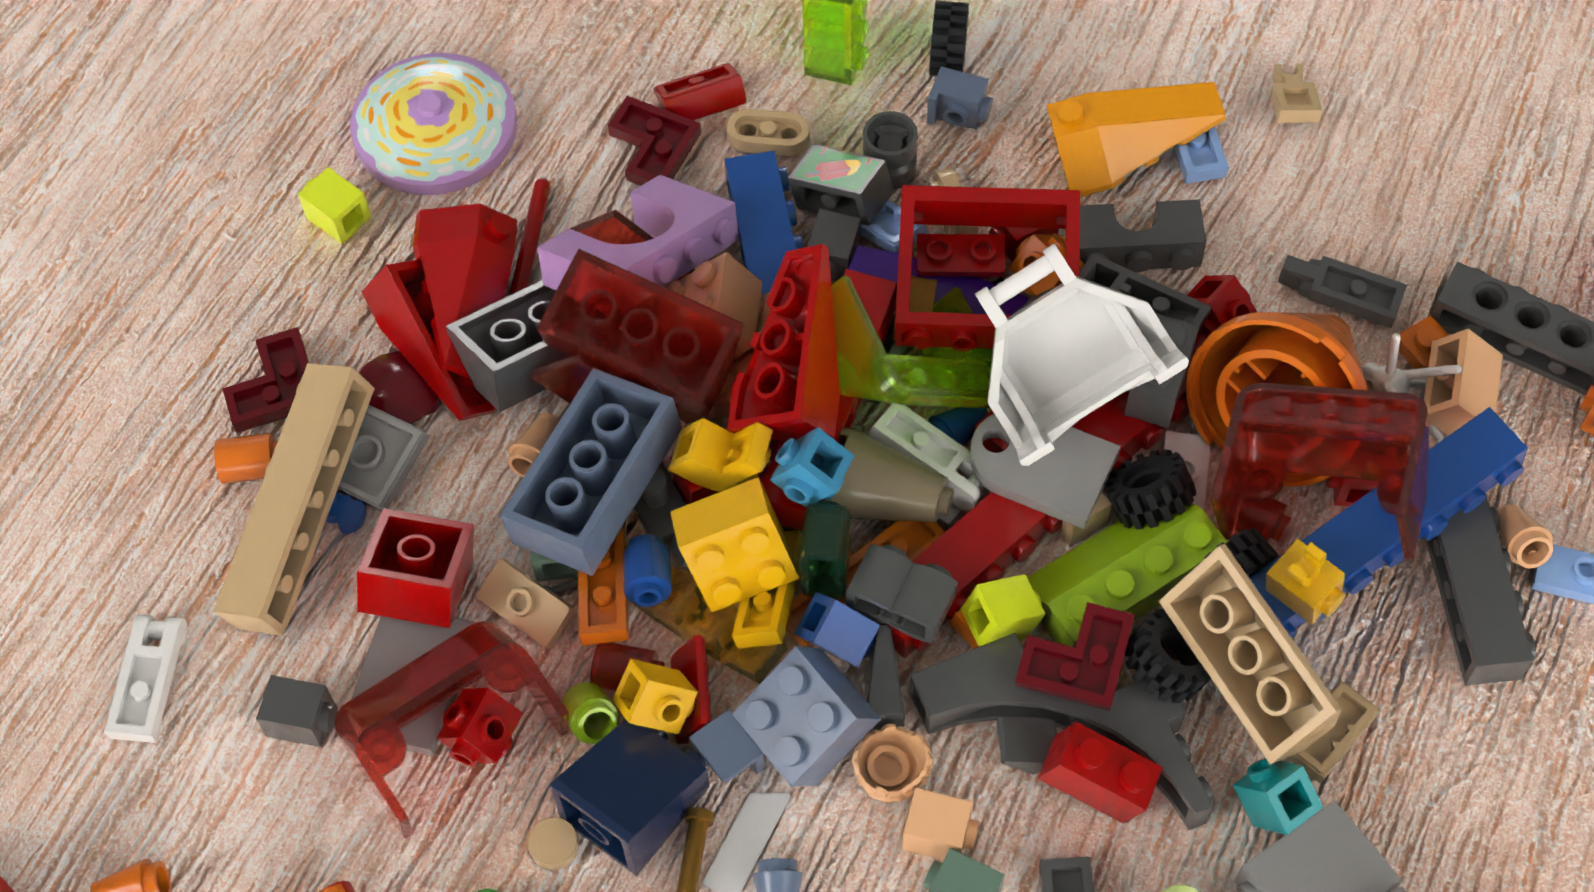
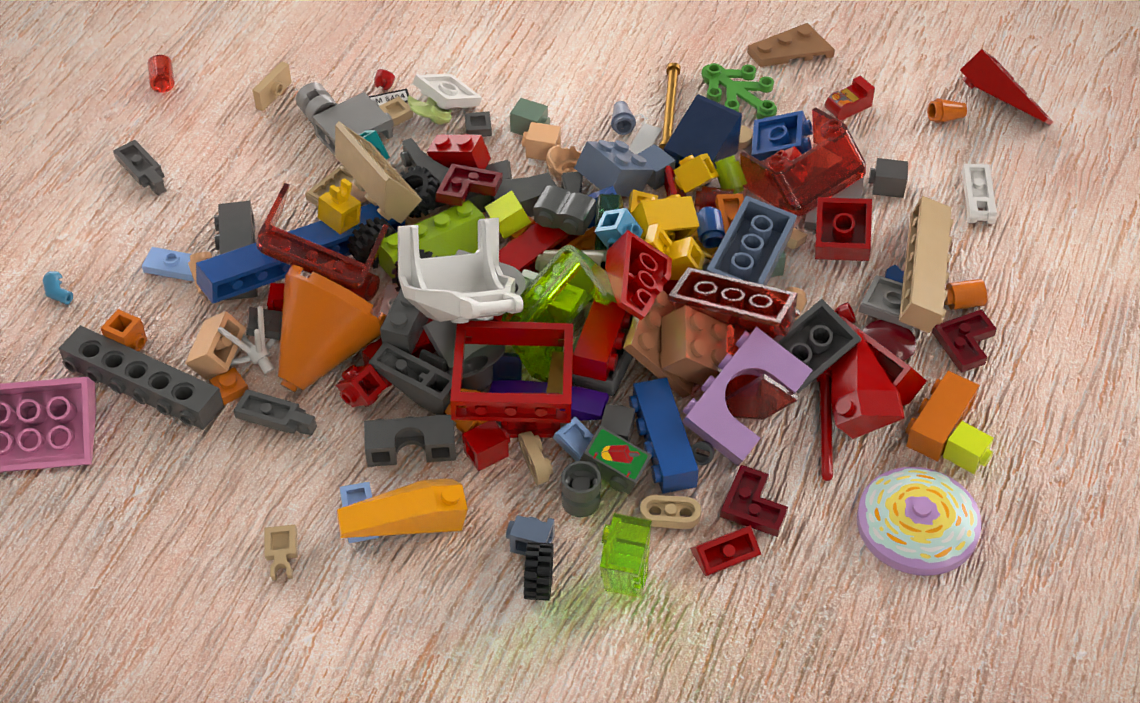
camera: 175 degrees right, 10 degrees down
(353, 254) = (941, 414): none -> orange brick
(452, 434) = (847, 312): none -> red hinge
(475, 814) = (781, 133): none -> blue plate

